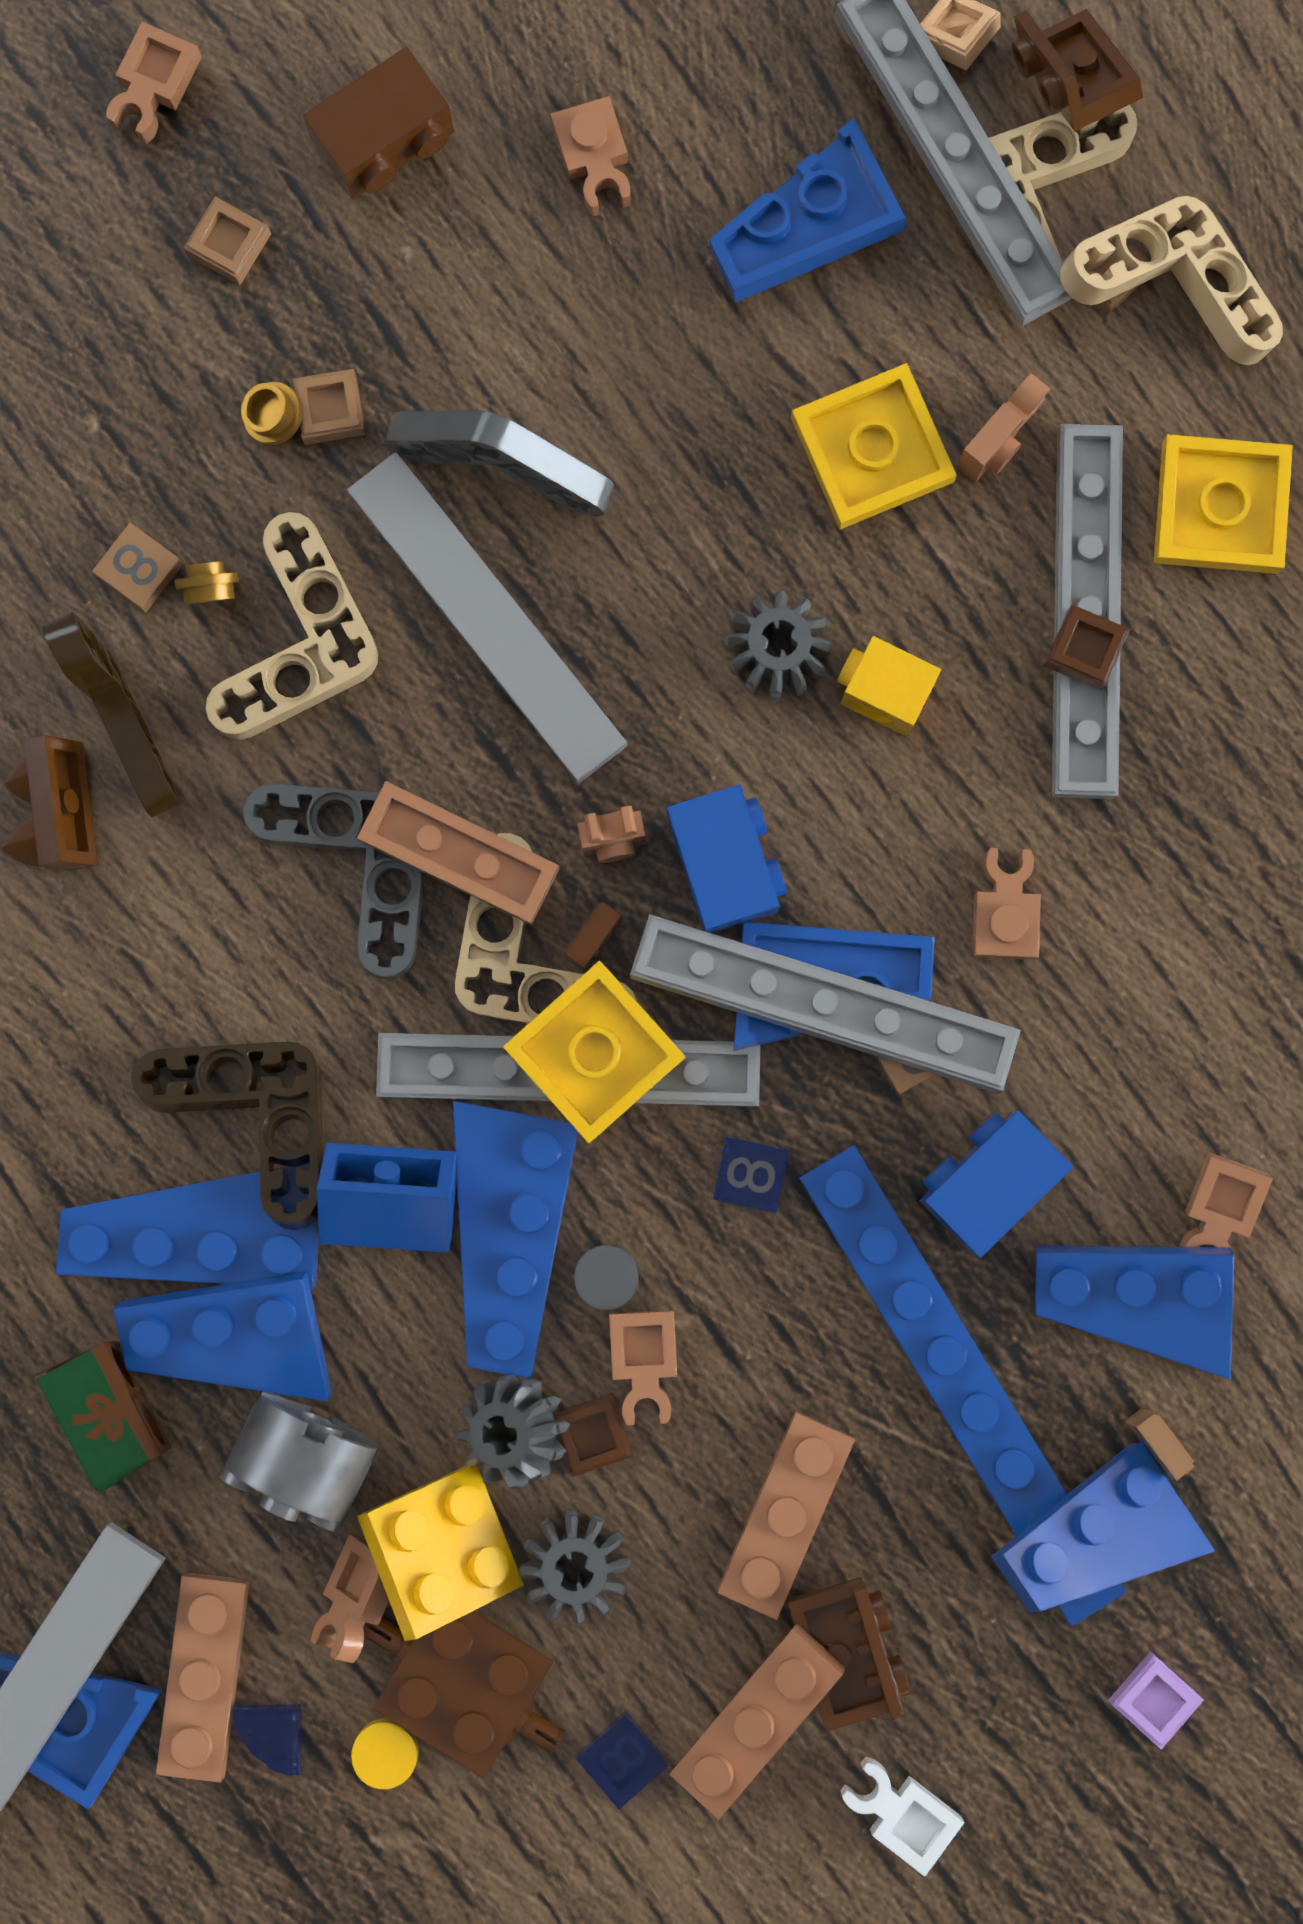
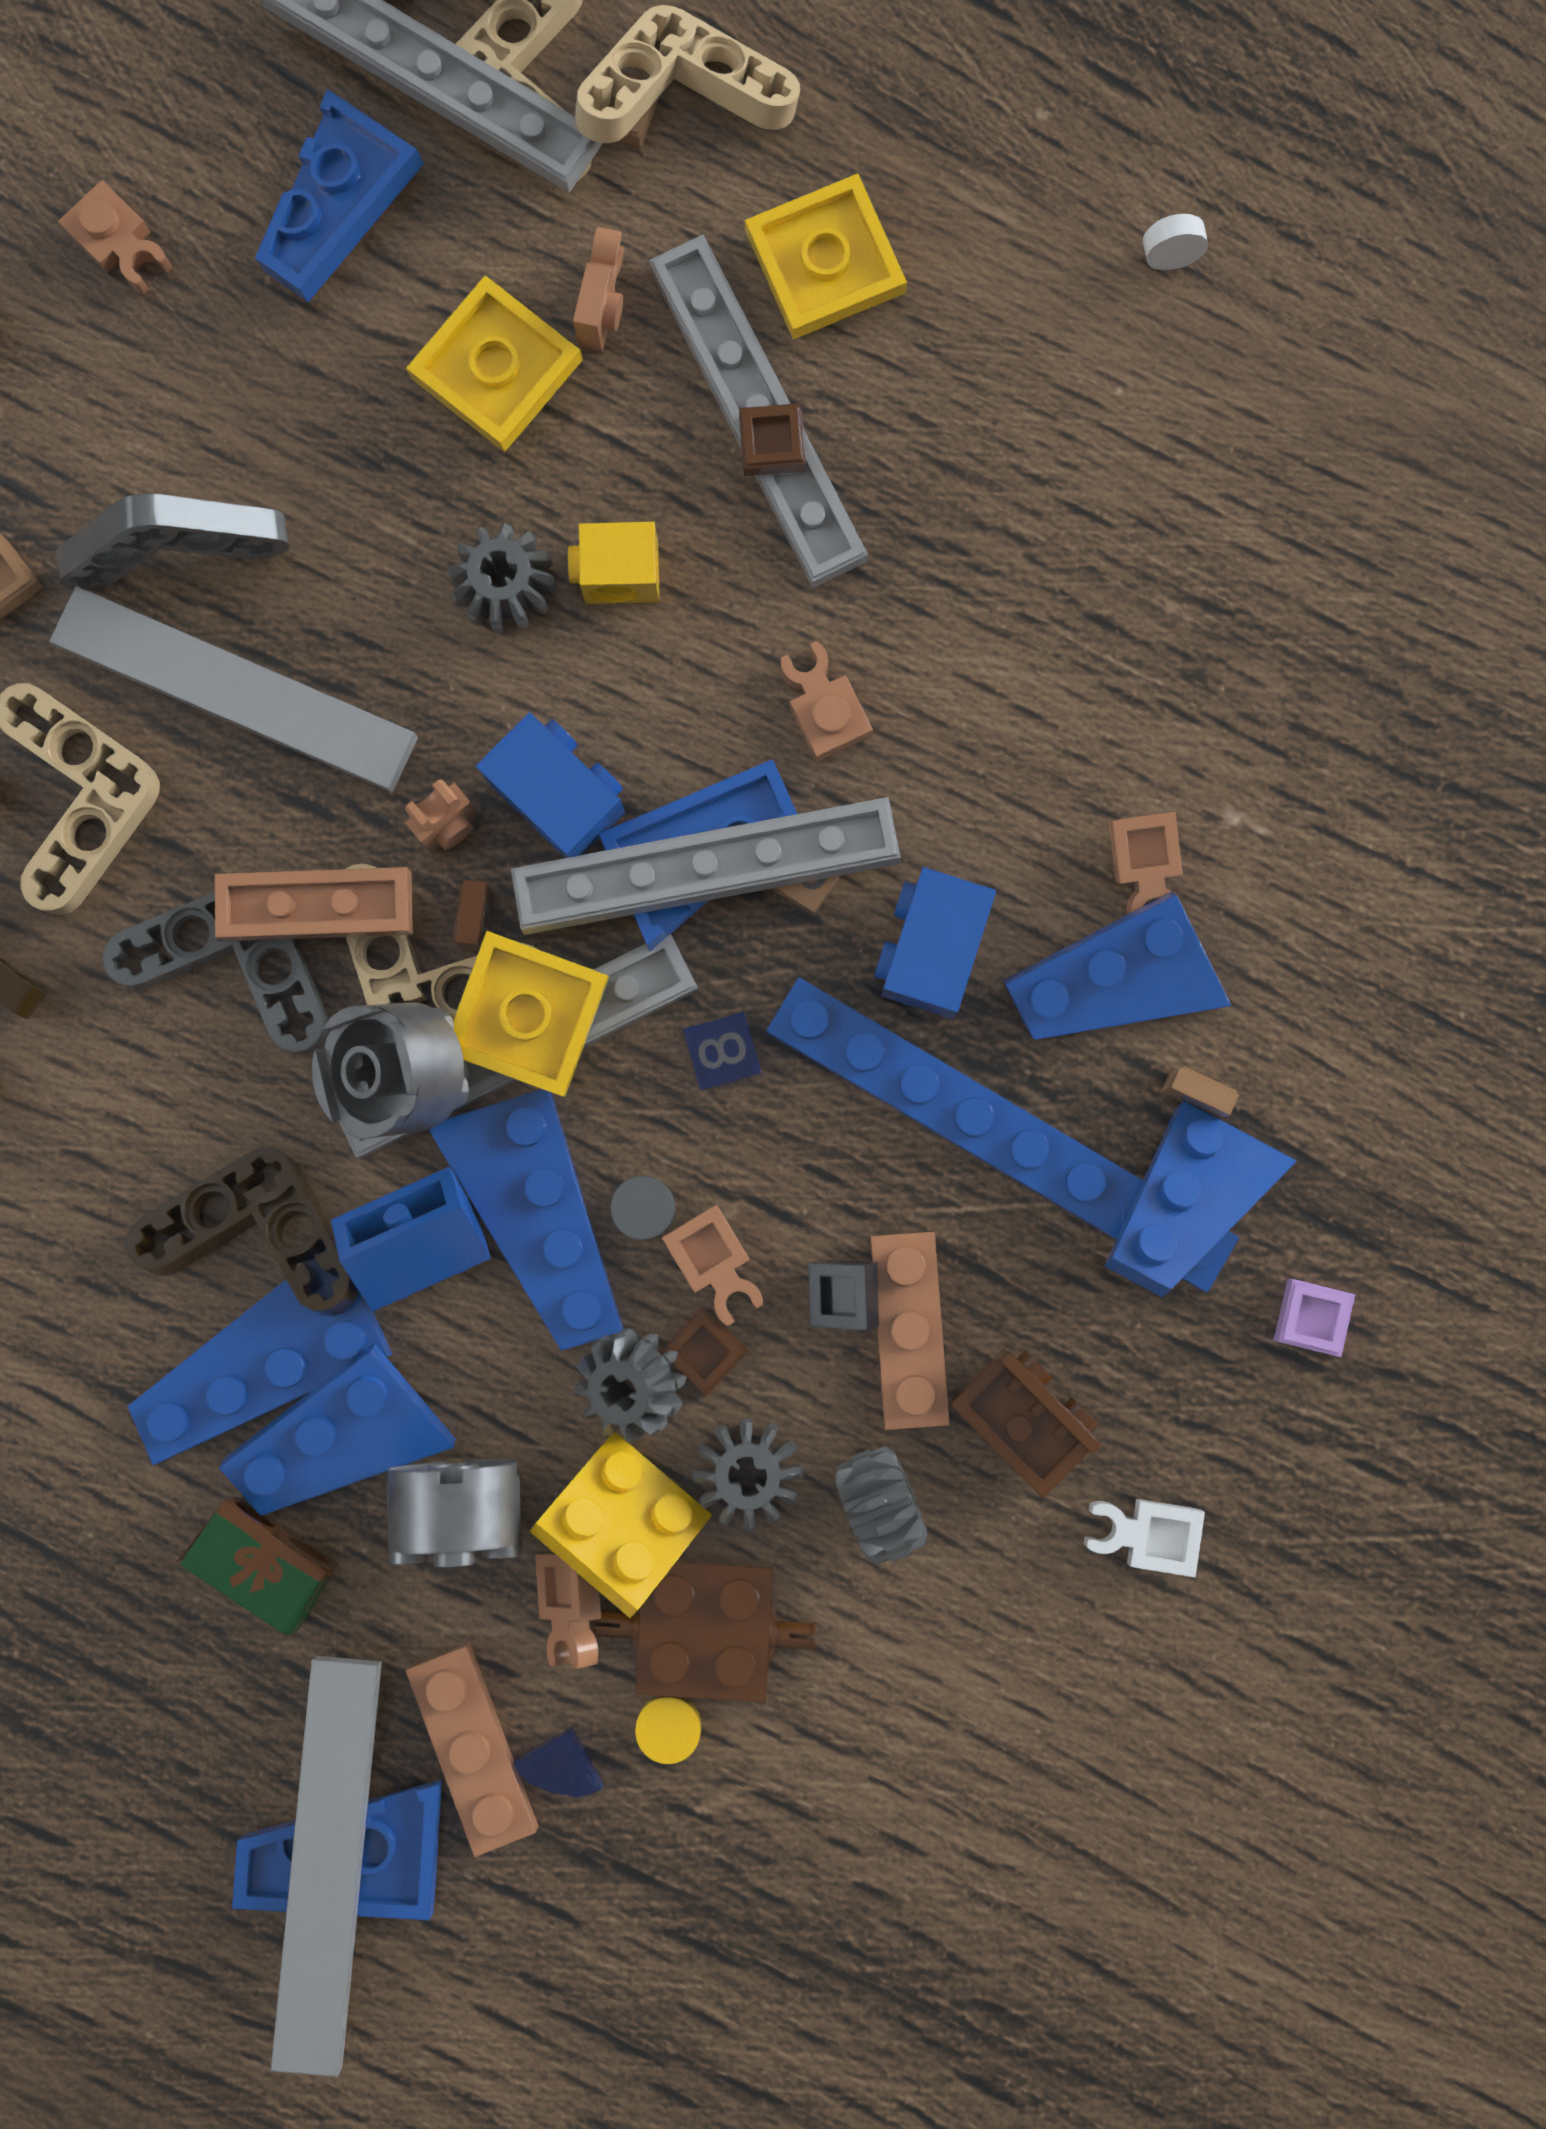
camera: 25 degrees left, 0 degrees up
(449, 1040) = (389, 1069): none -> flat silver brick
(622, 1760) = (879, 1621): clear blue tile -> none
(678, 1660) = (880, 1505): none -> dark grey gear
(744, 1452) = (843, 1294): none -> black plate
(758, 1721) = (978, 1521): nougat plate -> none

